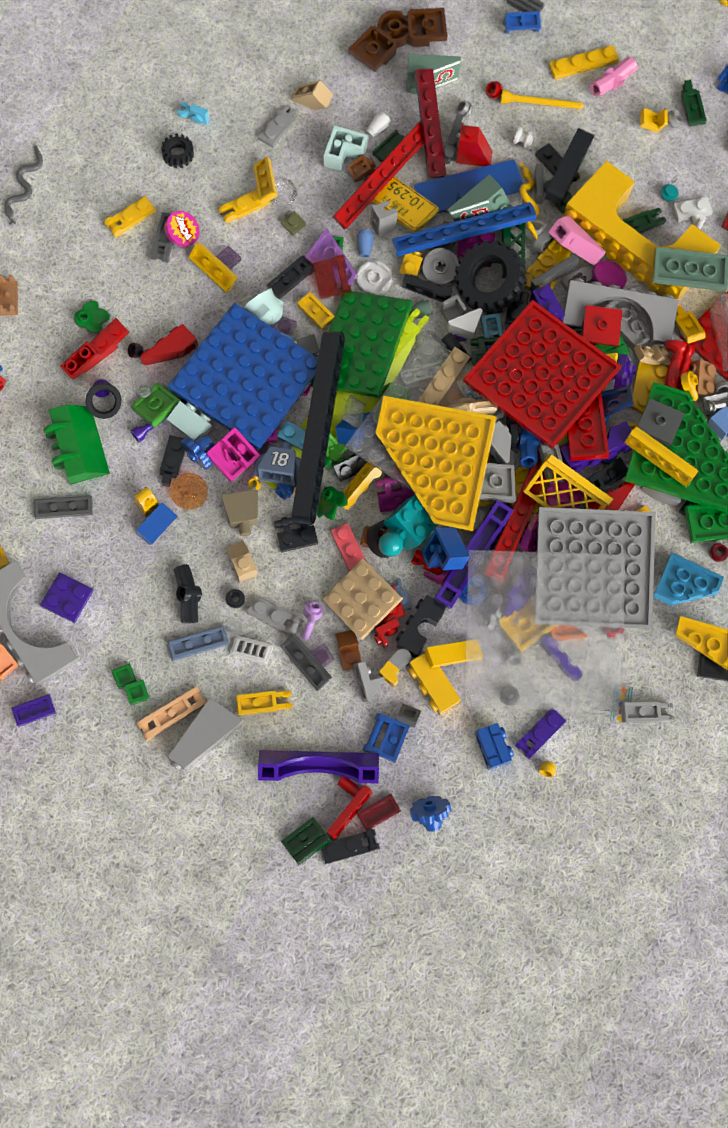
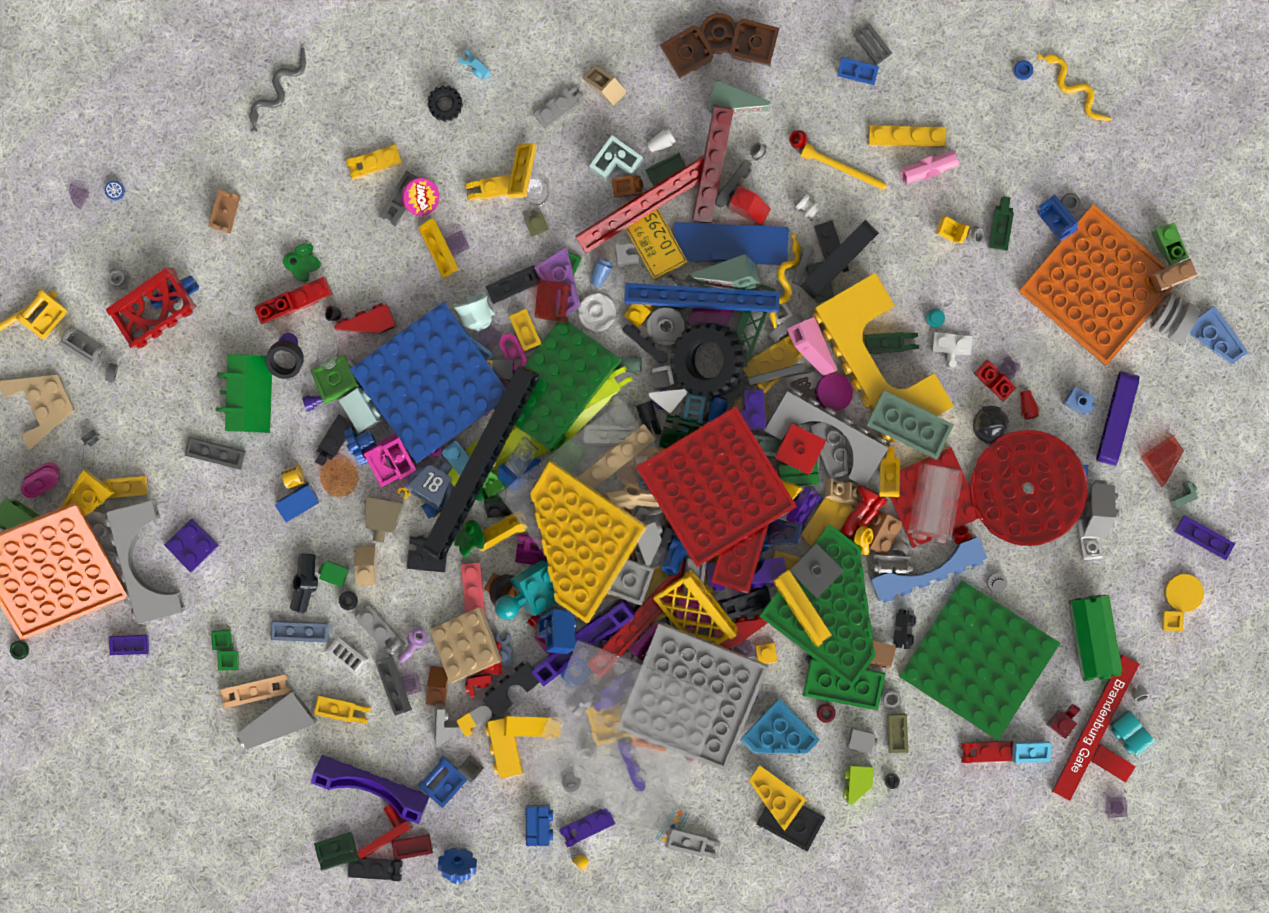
camera: 25 degrees right, 15 degrees up
(213, 576) = (333, 573): none -> green brick
(313, 328) = (513, 351): none -> dark pink plate
(512, 313) = (717, 407): none -> blue cone

